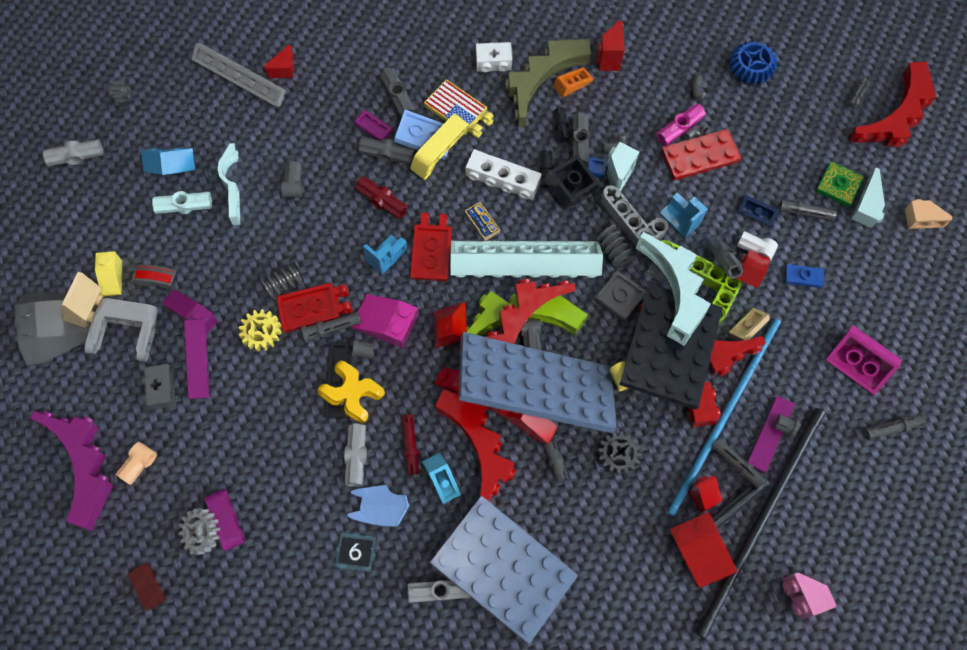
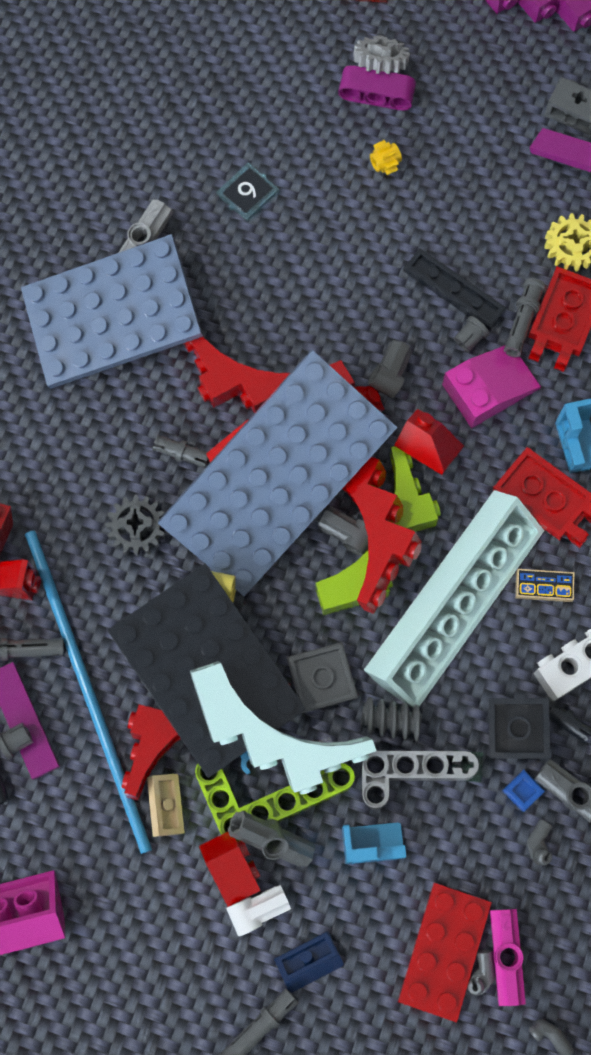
camera: 130 degrees right, 5 degrees up
(139, 458) = (506, 46): light nougat piece -> none
(275, 477) = (385, 157): none -> yellow gear
(351, 391) = (425, 286): yellow piece -> none
(355, 455) = (350, 251): light grey piece -> none
(379, 506) = (274, 237): light blue shield -> none
(411, 452) = (323, 315): dark red pin -> none
(424, 376) = (388, 374): none -> dark grey piece
(441, 478) = (258, 318): medium azure slope -> none
(621, 164) = (495, 808): light aqua slope -> none
(707, 412) = (108, 661): red brick -> none
(804, 276) = (175, 941): blue plate -> none

